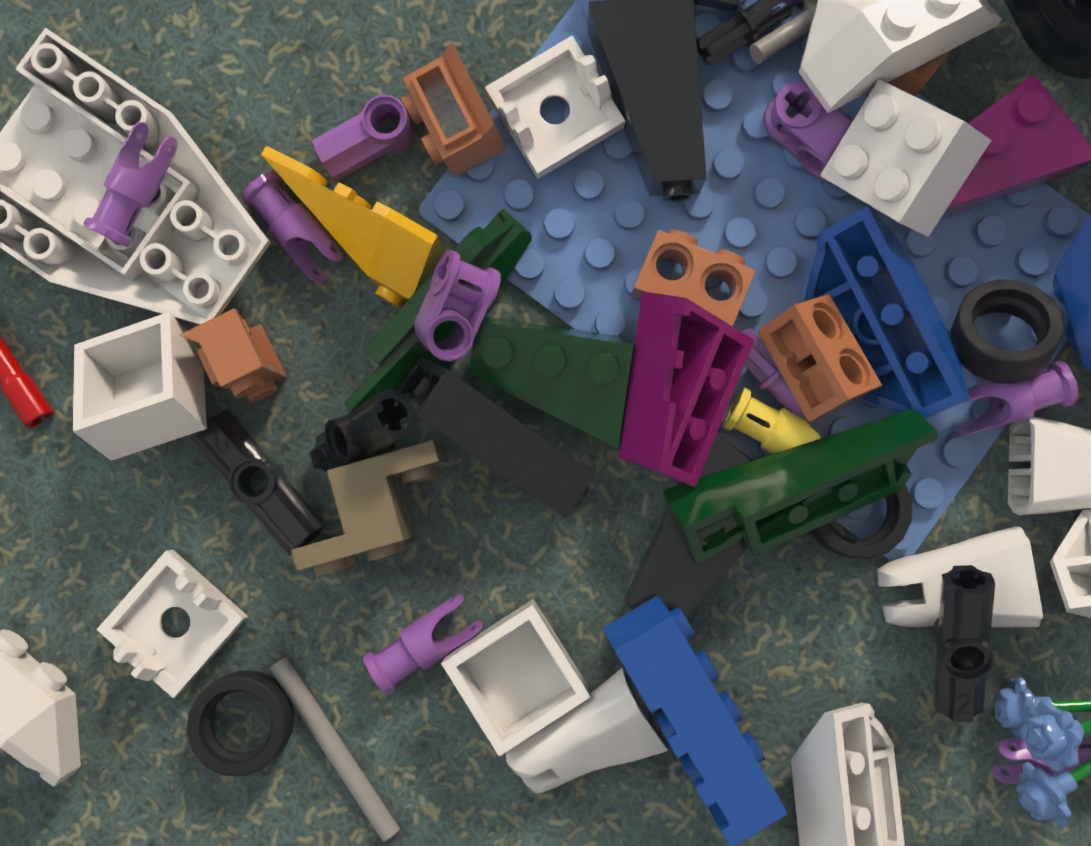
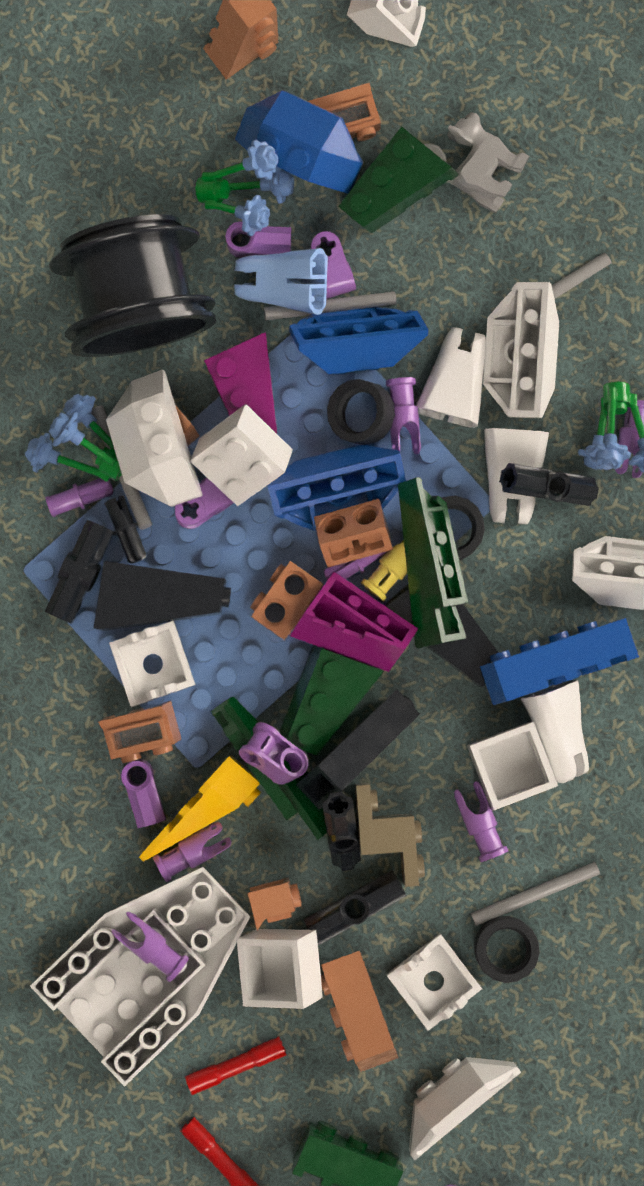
camera: 85 degrees left, 0 degrees up
(99, 518) = (357, 1012): none -> nougat wedge

